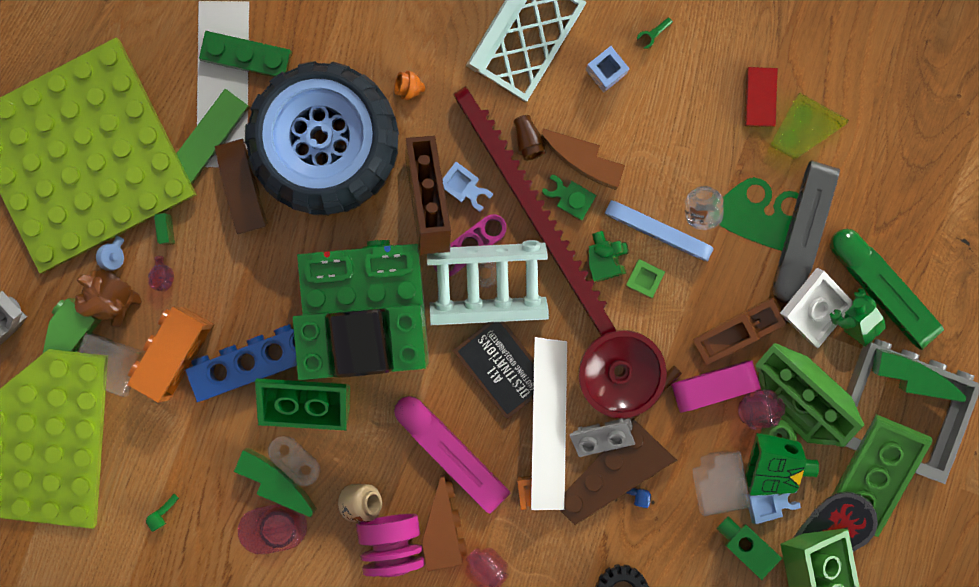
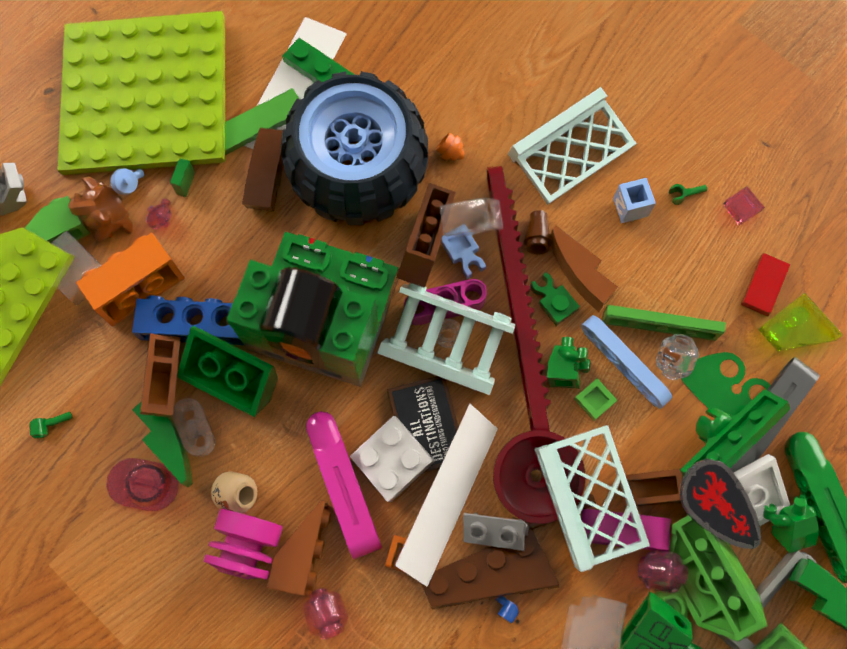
camera: 20 degrees right, 15 degrees down
(244, 431) = (160, 375): none -> dark orange slope
(459, 163) = (471, 217): none -> clear piece
(485, 412) = (392, 459): none -> white plate
(657, 393) = (566, 507): none -> light aqua fence
(679, 179) = (663, 322): none -> bright green tile
(713, 24) = (743, 205): none -> clear pink tile
(779, 267) = (734, 435): none -> green plate
(789, 335) = (720, 504): none -> shield

